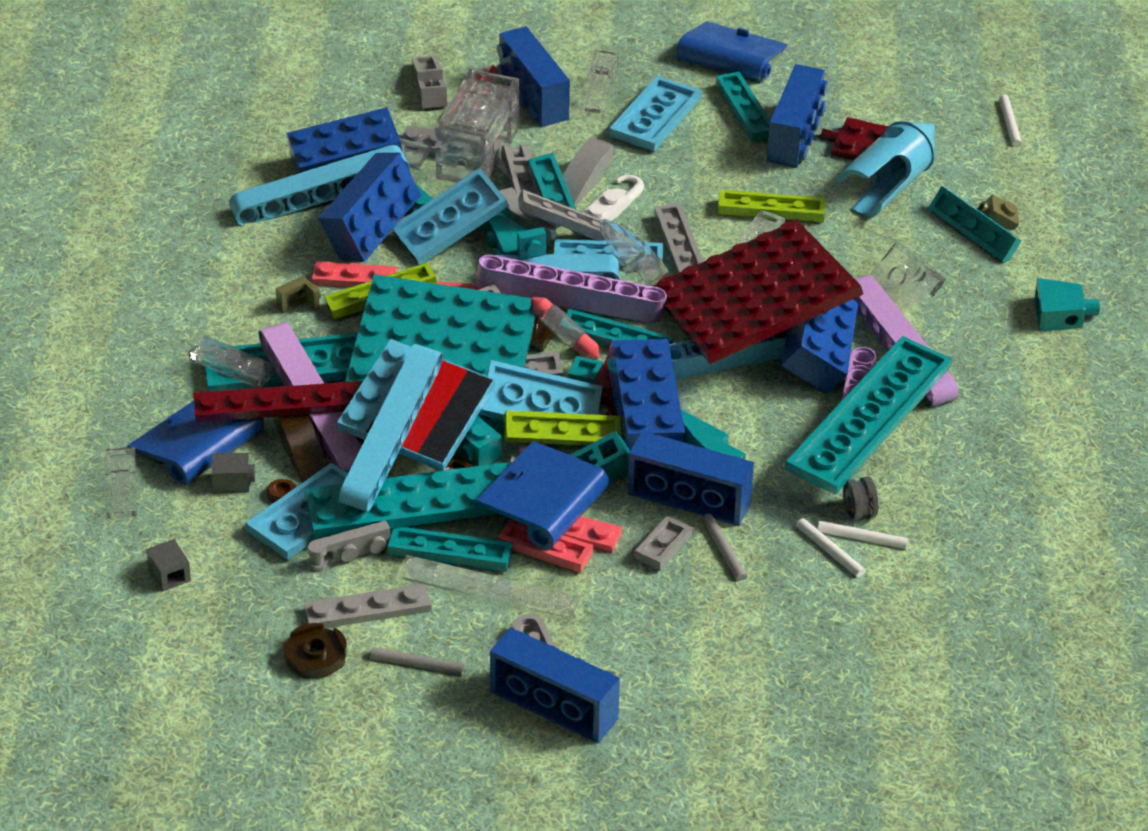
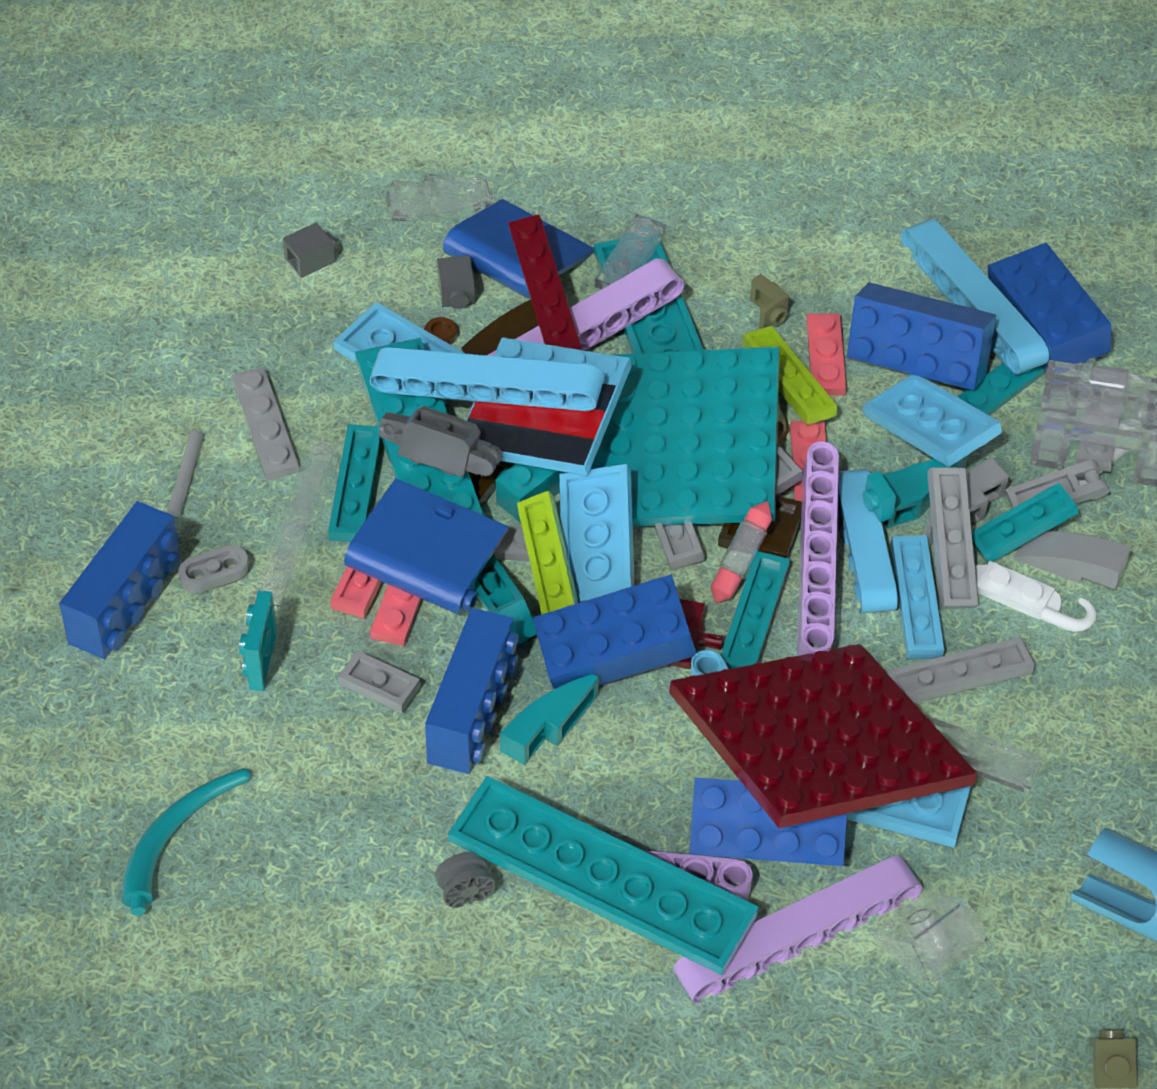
camera: 85 degrees right, 10 degrees up
(318, 664) = (198, 399): dark brown plate -> none
(348, 545) = (346, 389): light grey plate -> none
(451, 462) = (440, 442): none -> dark grey hinge
(584, 369) = (685, 582): teal plate -> none
(629, 597) = (259, 641): none -> teal plate
(633, 253) = (896, 610): clear slope -> none
(724, 547) = (378, 749): light grey bar -> none
(787, 206) = (1063, 775): lime plate -> none
(830, 548) = (391, 859): white bar -> none
(835, 690) = (141, 865): none -> teal animal
(863, 535) = (417, 893): white bar -> none
(974, 224) = (1084, 1017): teal plate -> none

